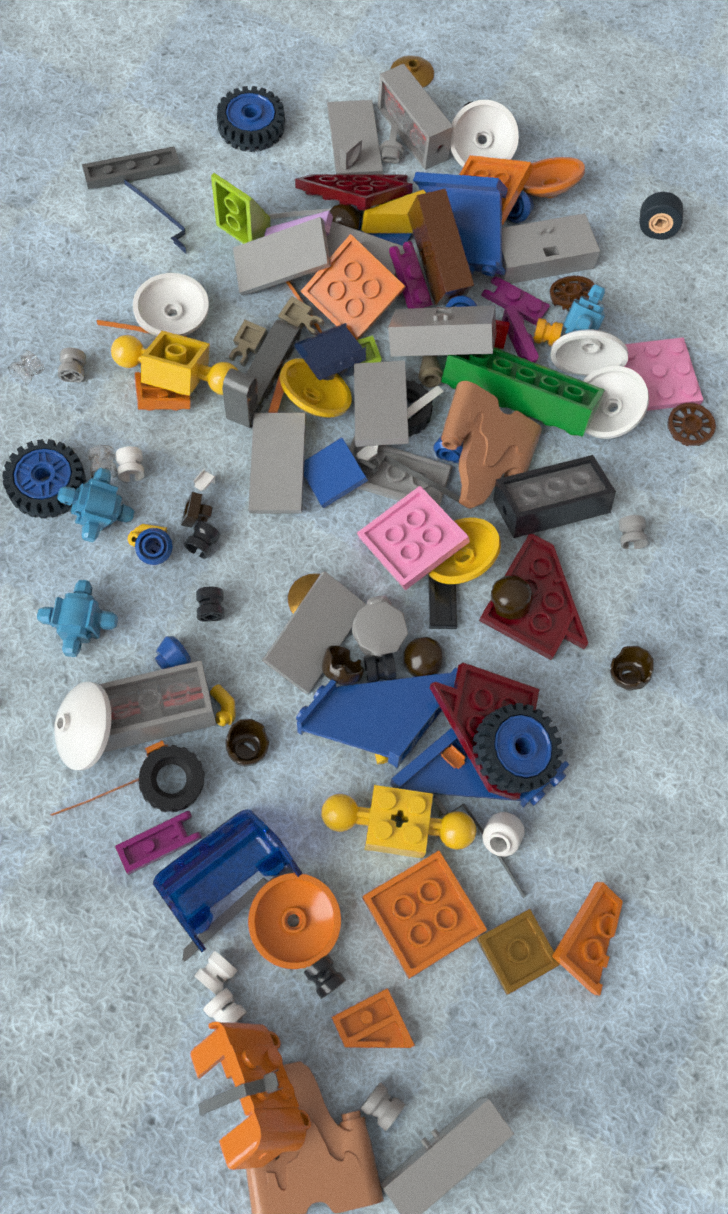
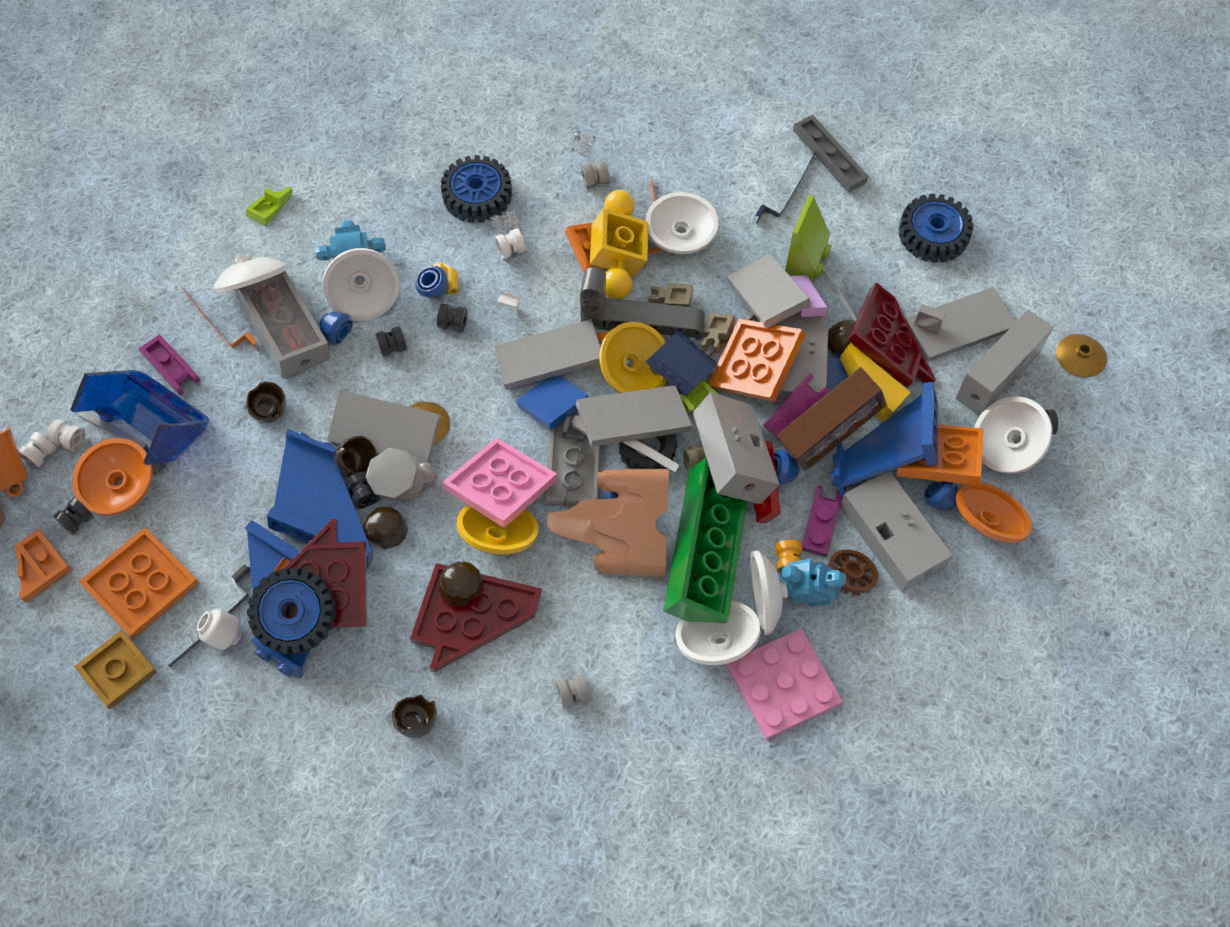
camera: 80 degrees right, 5 degrees down
(96, 504) = (458, 228): dark azure piece -> none
(138, 610) = (365, 298): none -> white dish
(167, 756) = (223, 337): black tyre -> none
(195, 510) = (479, 303): dark brown tile -> none
(227, 702) = (305, 378): yellow arm -> none
(391, 149) = (961, 358): light grey piece -> none
(442, 605) = (439, 532): black tile -> none
(455, 829) = (216, 539): yellow brick -> none
(519, 337) = (769, 533): magenta hinge -> none
(553, 496) = (585, 599): black brick -> none
(588, 937) = (135, 729): orange wing -> none
(661, 215) = (996, 642): black wheel -> none
(691, 424) = (732, 731): reddish brown wheel -> none

